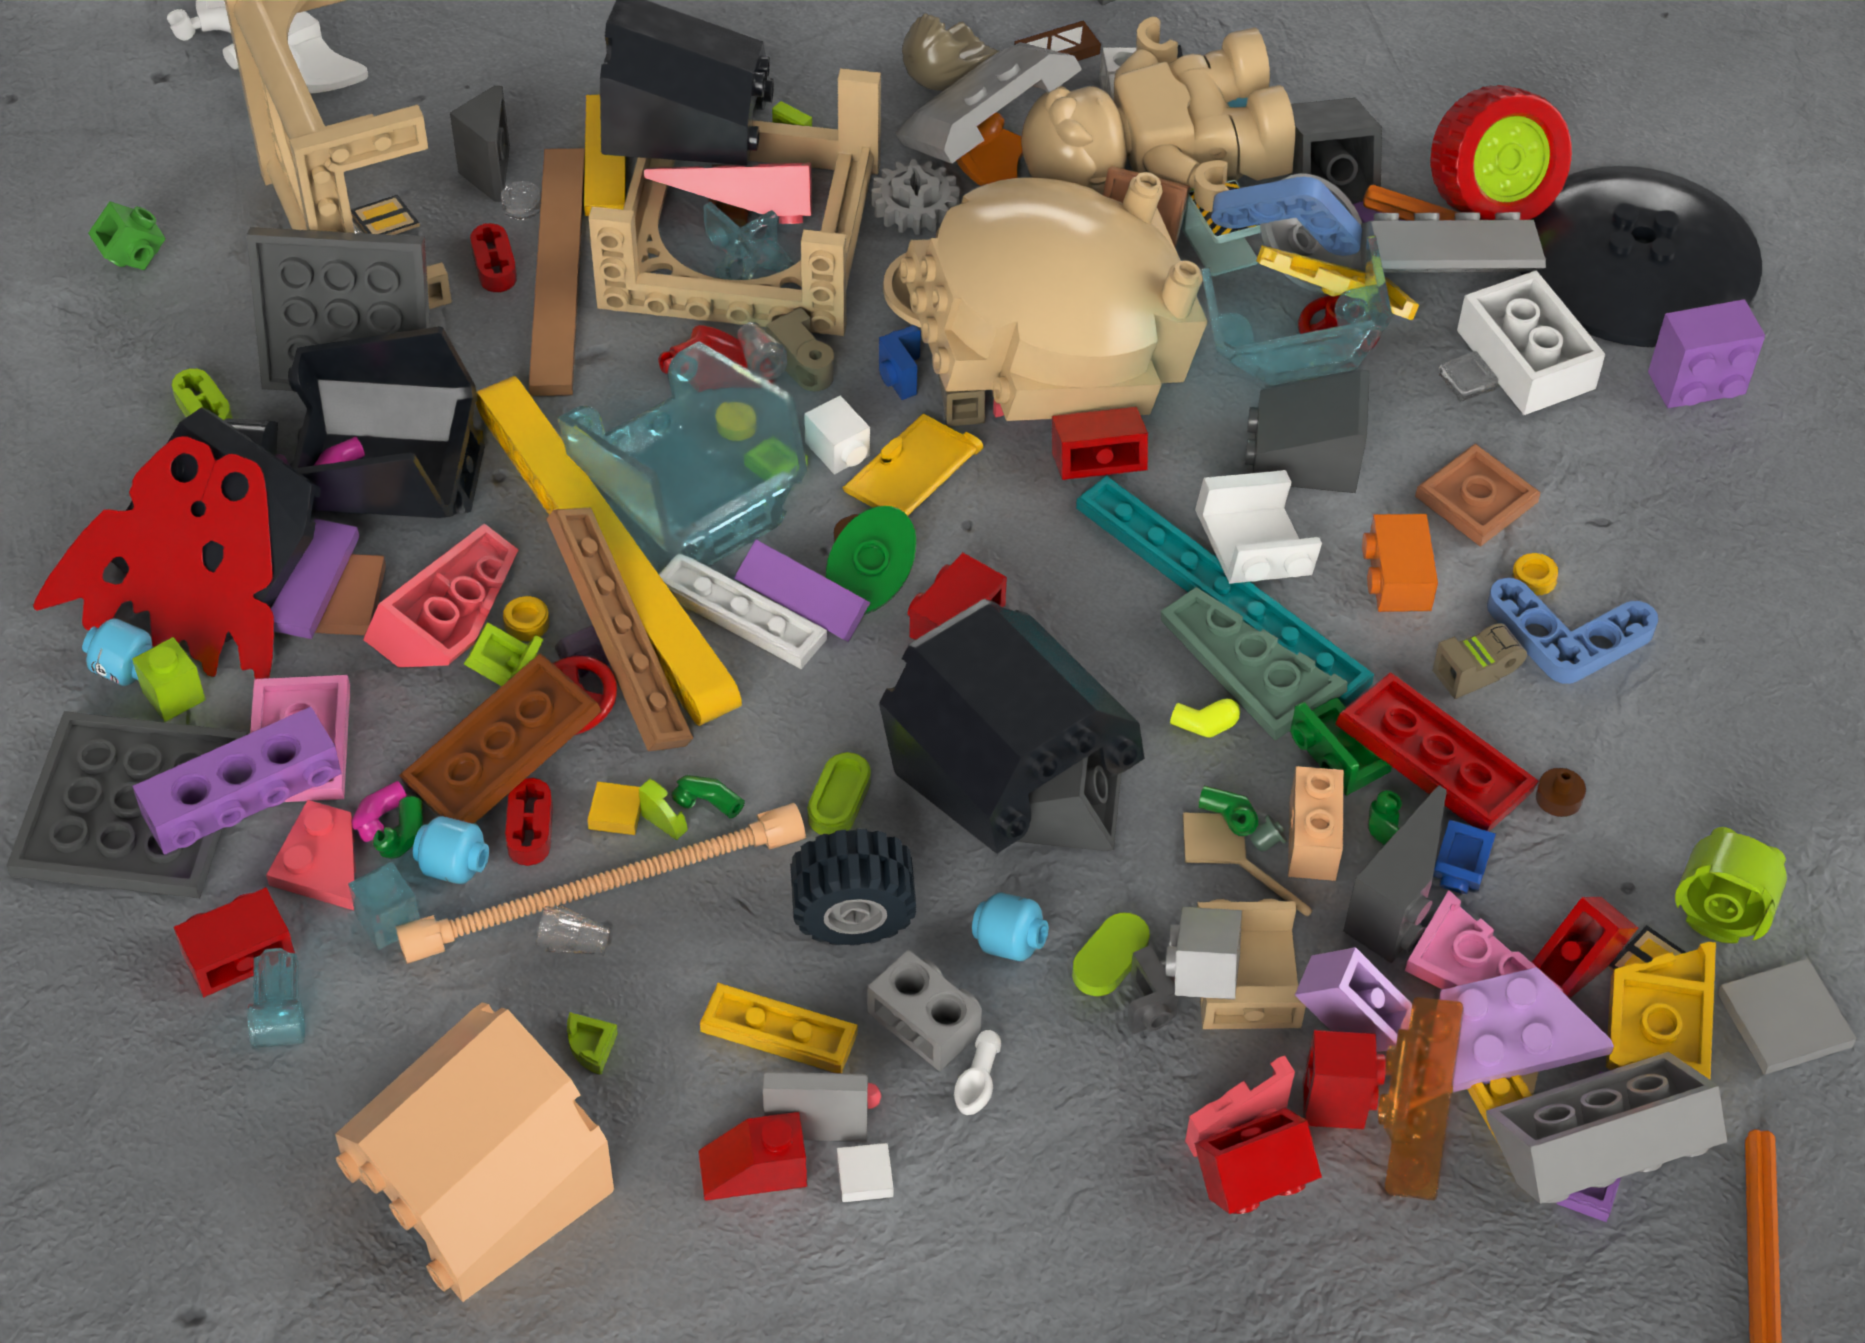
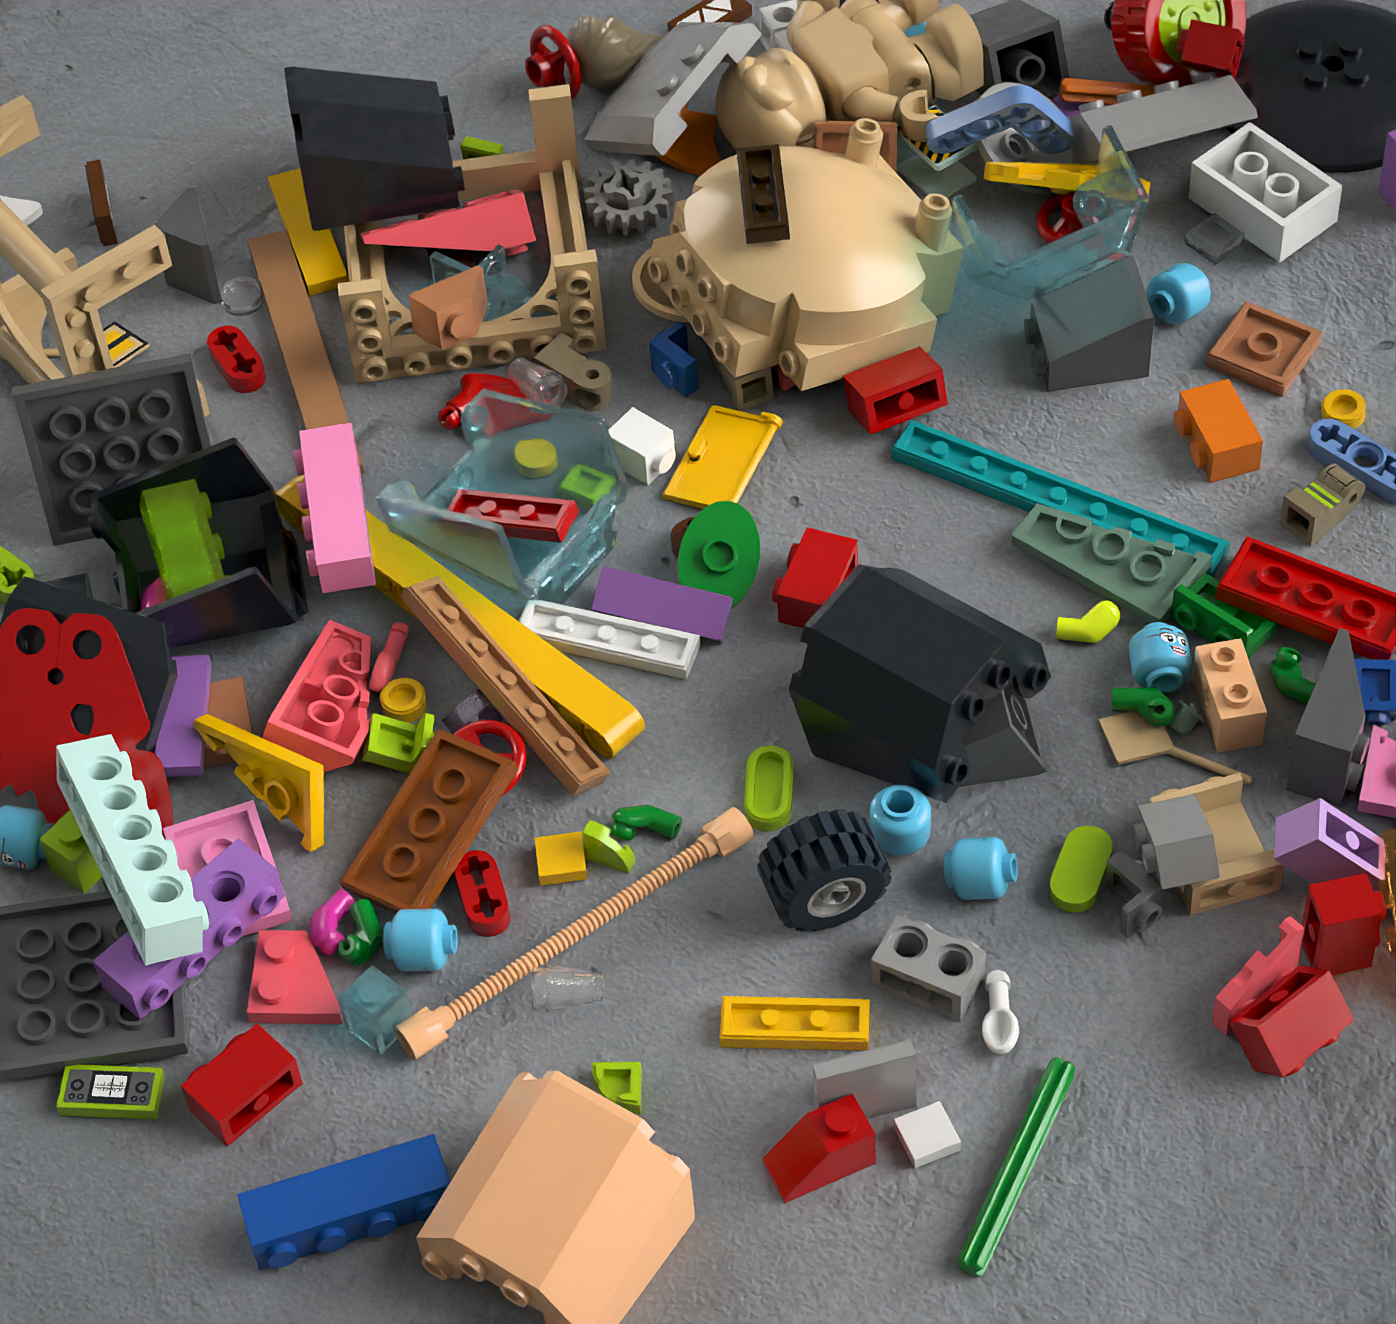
camera: 10 degrees left, 0 degrees up
(115, 915) = (111, 1091): none -> tile
(204, 692) = (130, 849): none -> light aqua brick
(277, 1010) = (307, 1137): clear light blue piece -> none
(283, 1080) = (344, 1202): none -> blue brick
(367, 407) = (182, 537): none -> clear neon green brick
(373, 656) = (279, 777): none -> yellow wing
(424, 77) = (101, 203): none -> reddish brown tile
(521, 419) = (335, 507): none -> bright pink brick
(522, 577) = (388, 658): none -> coral piece
(691, 469) = (519, 514): none -> red tile
(702, 258) = (450, 308): none -> nougat slope
(882, 54) = (547, 67): none -> red piece
(938, 1229) = (1016, 1167): none -> green axle
(948, 858) = (900, 819): none -> medium azure head
(1018, 220) = (763, 194): none -> dark brown tile
(1251, 528) = (1067, 436): white panel -> none
(1261, 768) = (1160, 657): none -> medium azure head
(1411, 419) = (1178, 293): none -> medium azure head
(1523, 190) = (1211, 47): none -> red slope

